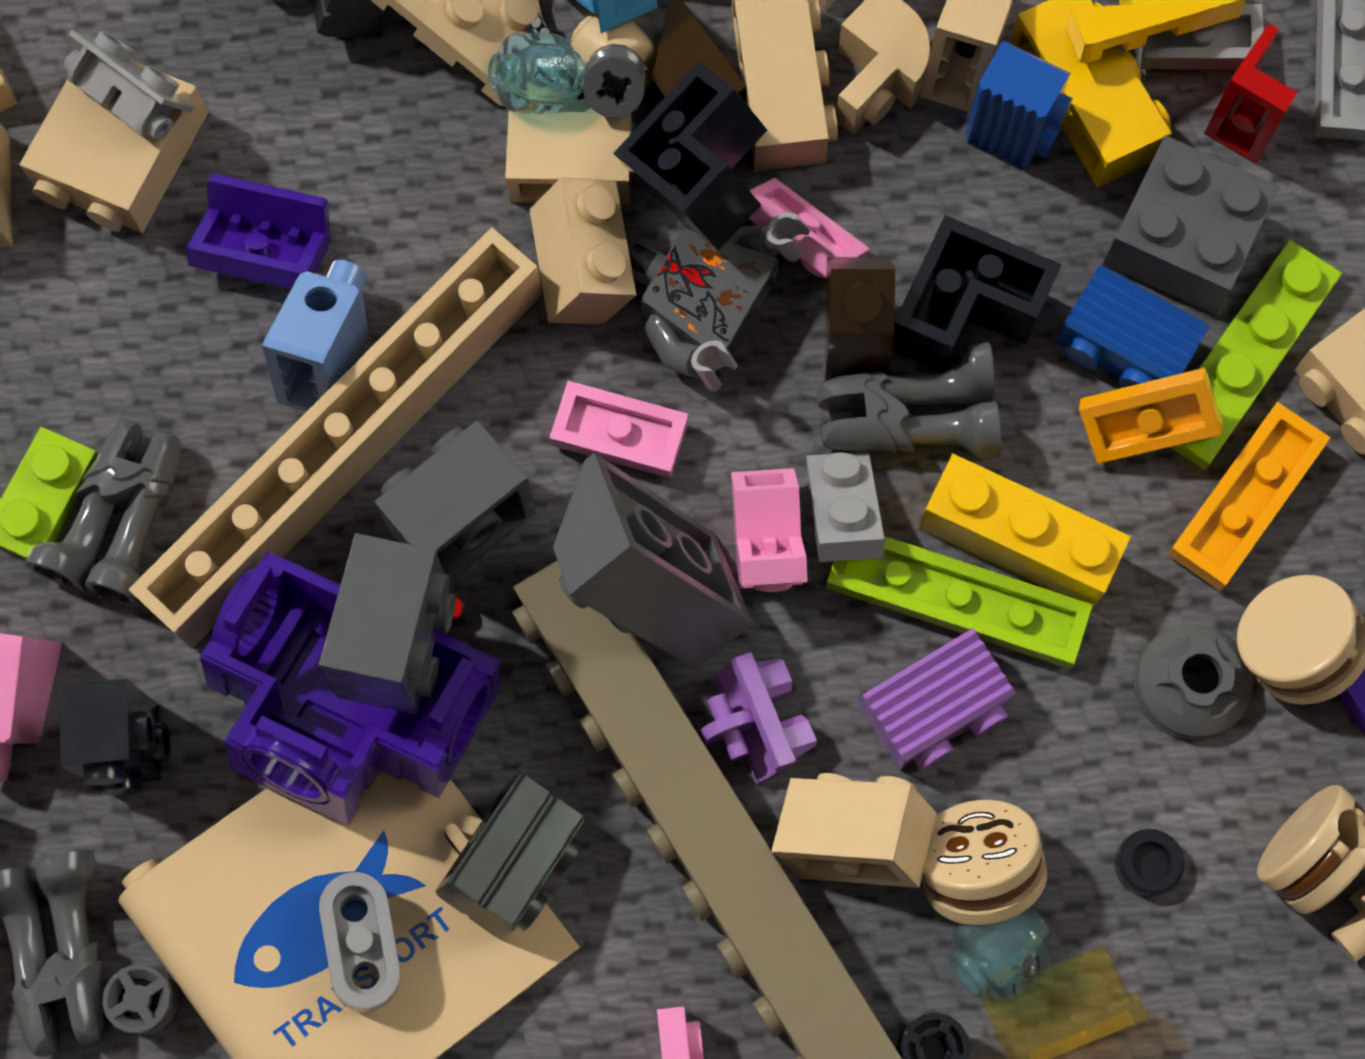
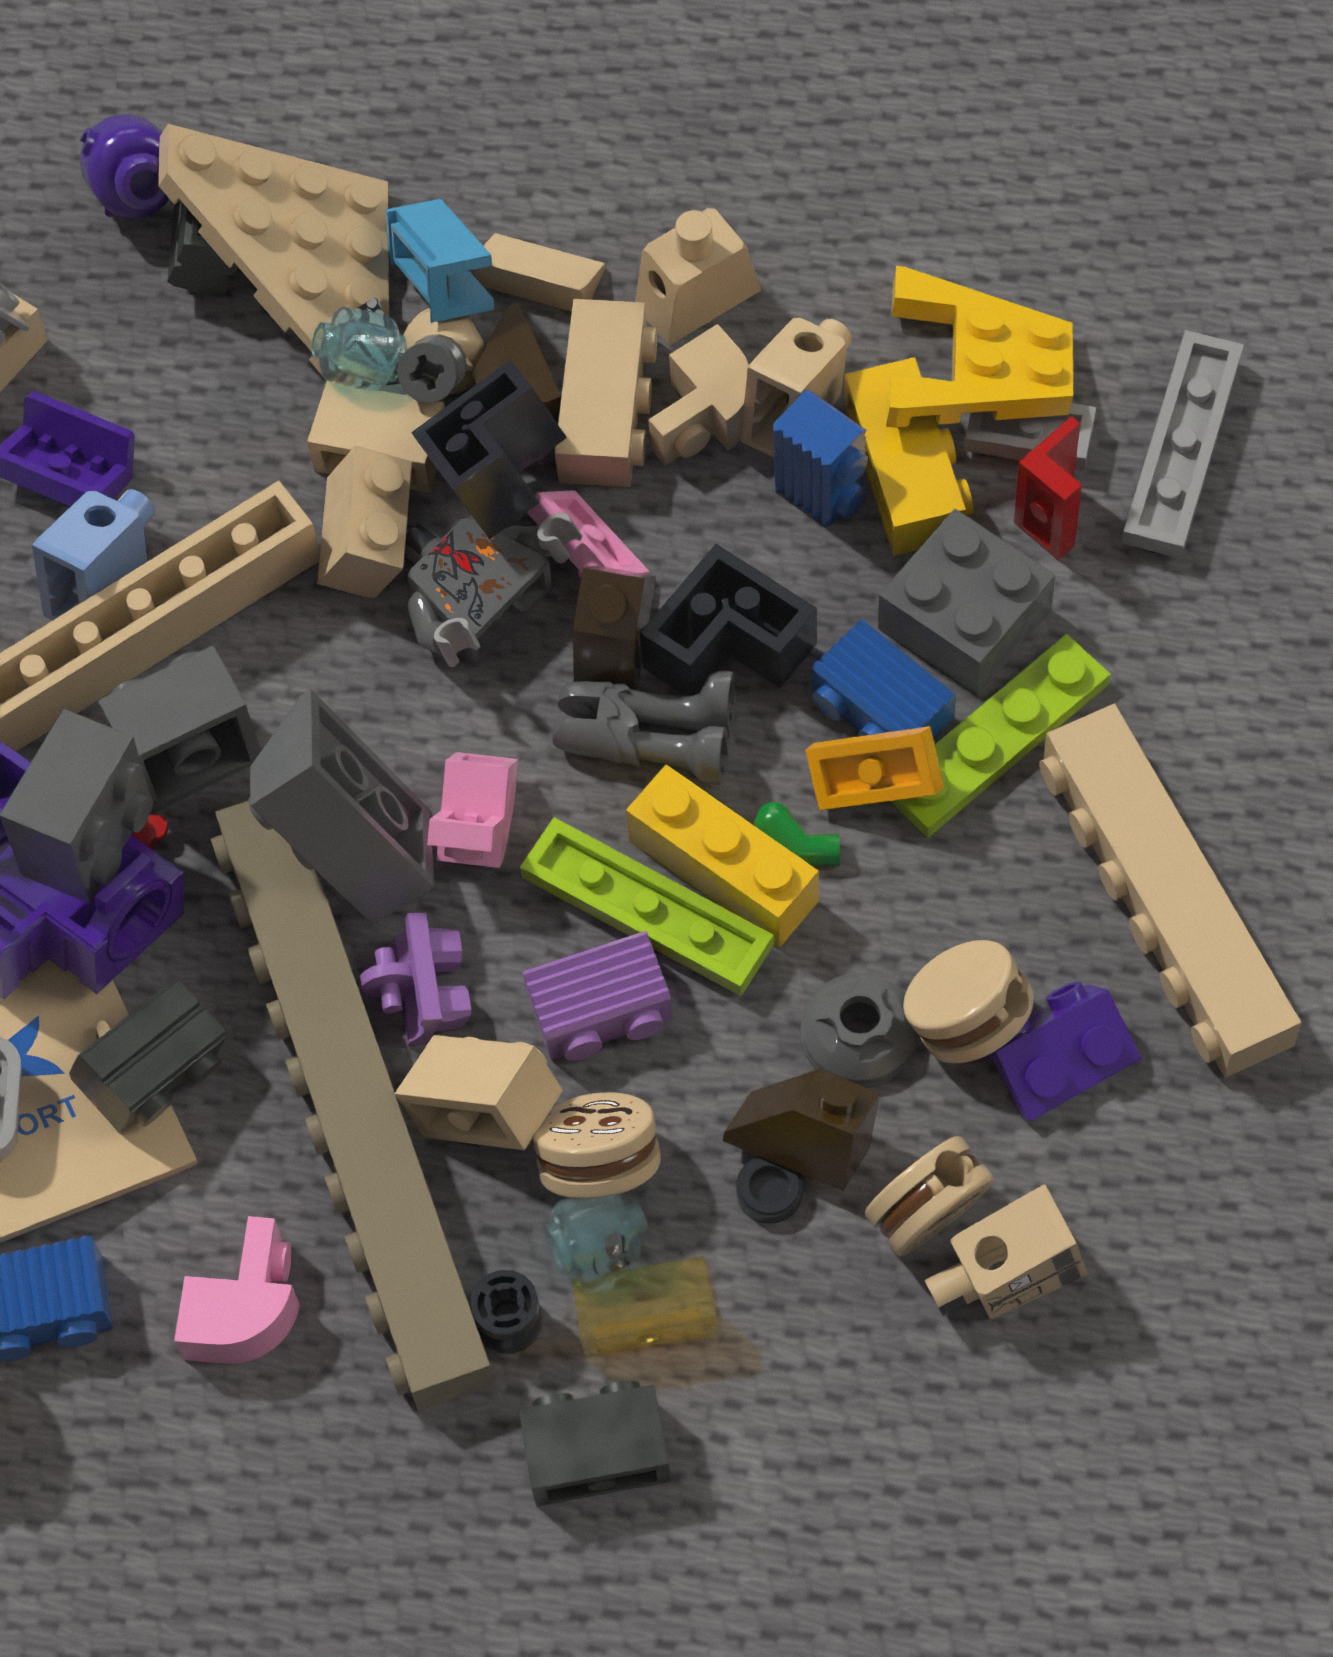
camera: 15 degrees right, 10 degrees down
(619, 429) = (362, 694): bright pink plate -> none
(844, 506) = (555, 799): light grey plate -> none
(1065, 488) = (815, 849): none -> green arm
(1177, 796) = (808, 1125): none -> dark brown slope
(1248, 496) = (958, 865): light orange plate -> none

